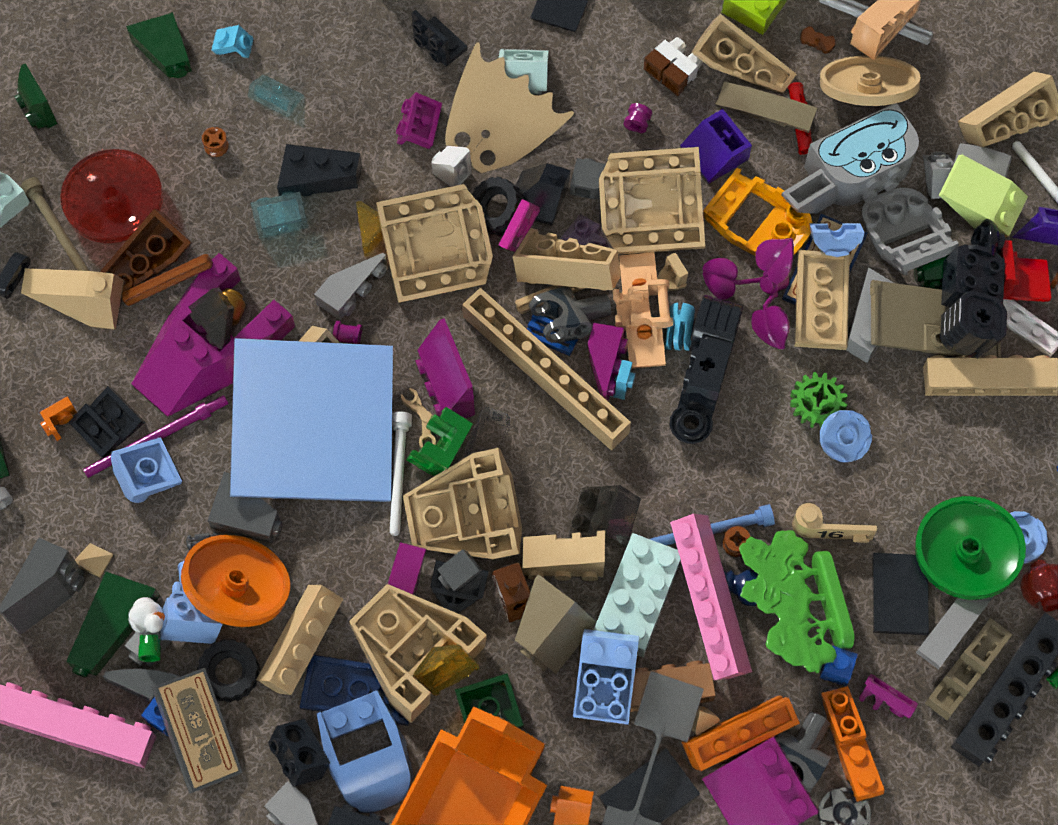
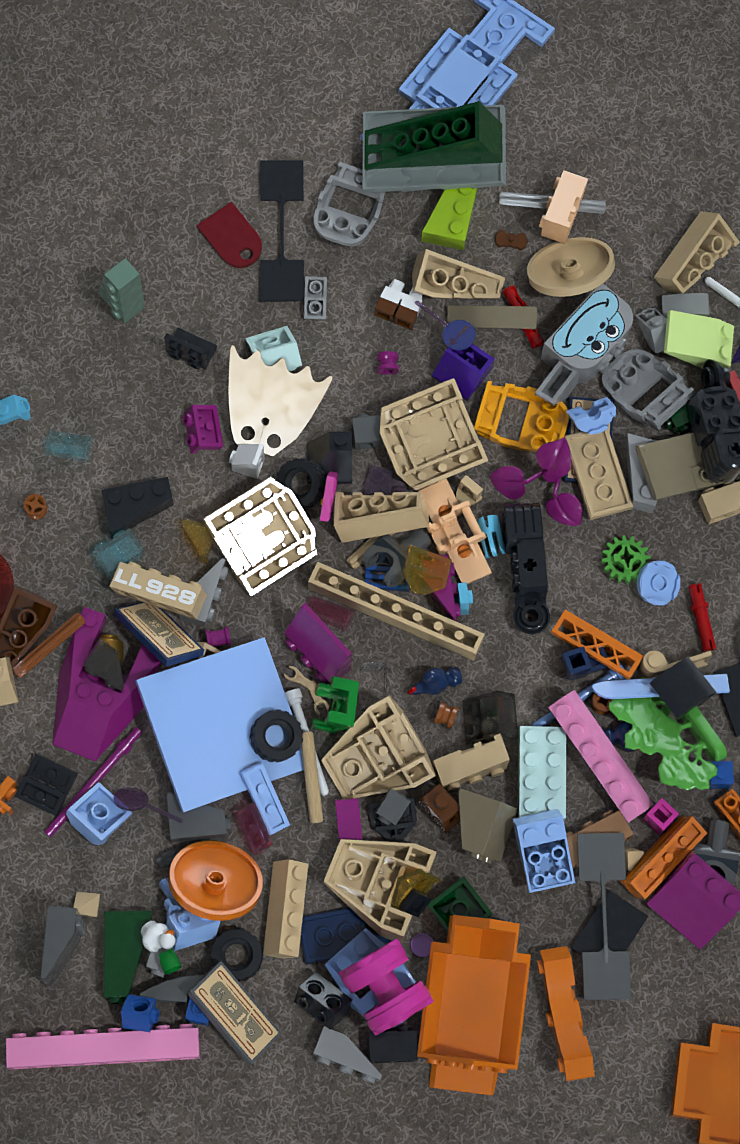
camera: 25 degrees left, 5 degrees up
(95, 692) = (139, 1013): none -> blue brick
(190, 467) = (136, 799): none -> clear purple piece
(283, 303) = (159, 633): none -> tile
(301, 542) = (254, 829): none -> clear pink slope
(302, 261) = (158, 590): none -> tan brick
(326, 514) = (265, 798): none -> light blue tile
(364, 738) = (394, 1001): none -> dark pink piece
(383, 447) = (293, 730): none -> black tyre
(385, 510) = (311, 778): none -> tan axle
(431, 730) = (421, 944): none -> medium lavender piece
(442, 682) = (415, 902): none -> black tile
(476, 349) = (331, 613): none -> clear pink slope
(558, 496) = (446, 715): none -> dark orange wheel
(560, 456) = (437, 680): none -> dark blue animal
(588, 32) = (315, 298): none -> light grey slope
(591, 334) = (426, 571): none -> clear yellow slope
(720, 108) = (457, 334): none -> clear purple piece
(726, 491) = (579, 664): none -> dark blue brick
(754, 687) = (661, 816): none -> dark pink brick
(756, 473) = (598, 639): none -> orange fence
(808, 546) = (642, 688): none -> light blue piece
(830, 553) = (683, 687): none -> black slope
(883, 478) = (700, 611): none -> red pin

